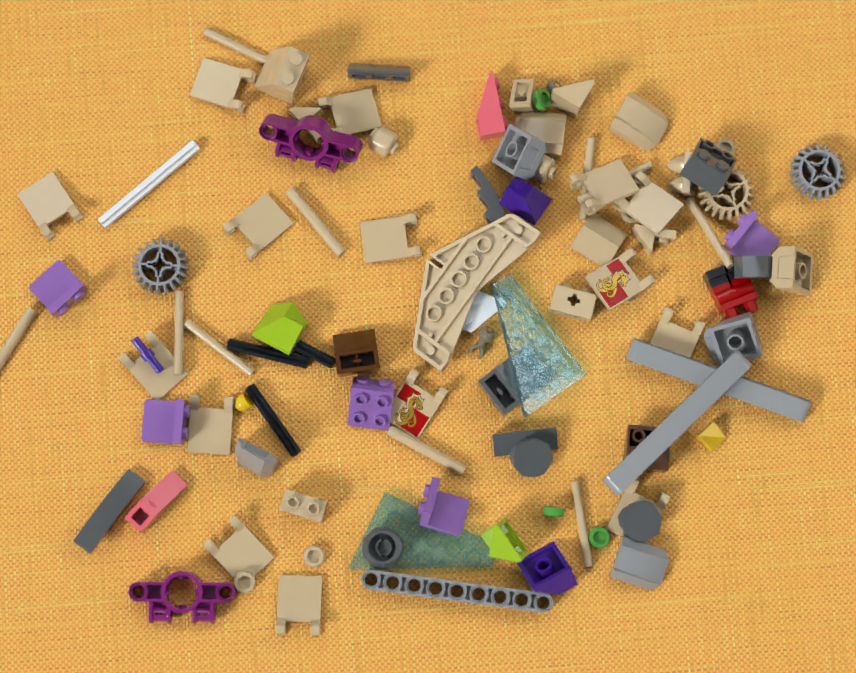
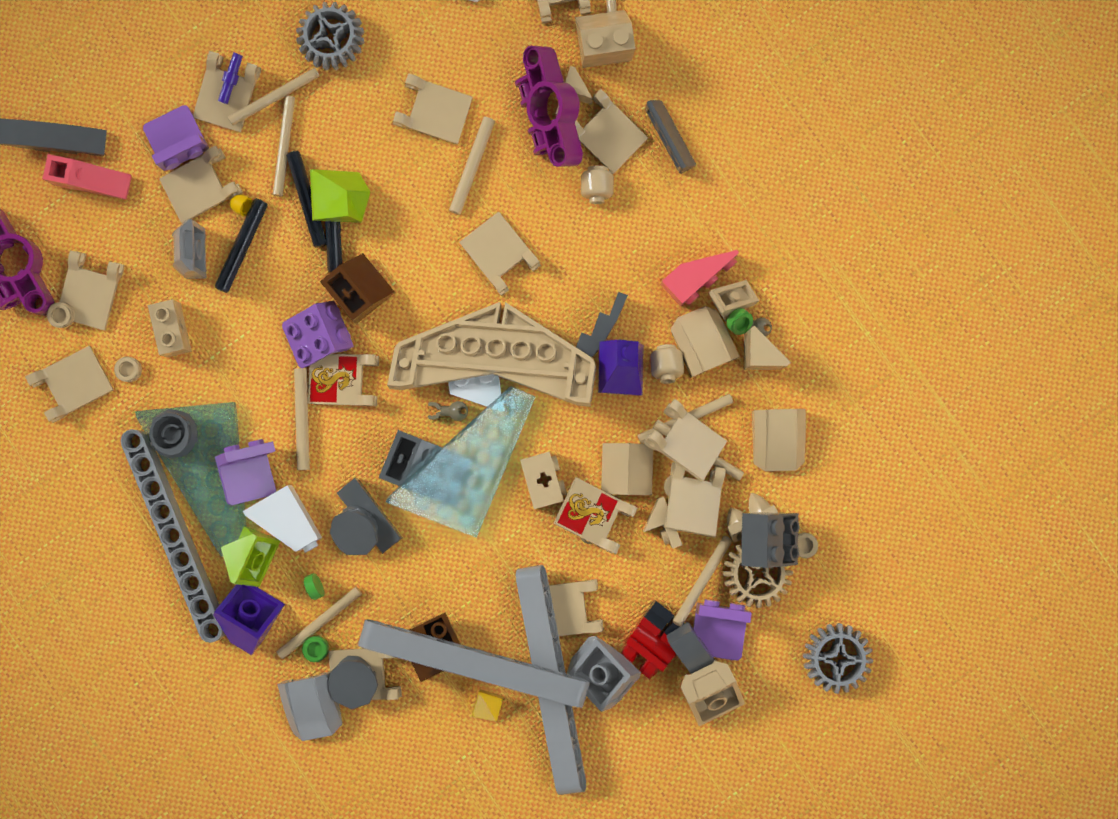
camera: 65 degrees right, 5 degrees up
(493, 502) = (286, 519): none -> white slope
(519, 152) = (666, 331): light grey slope -> none

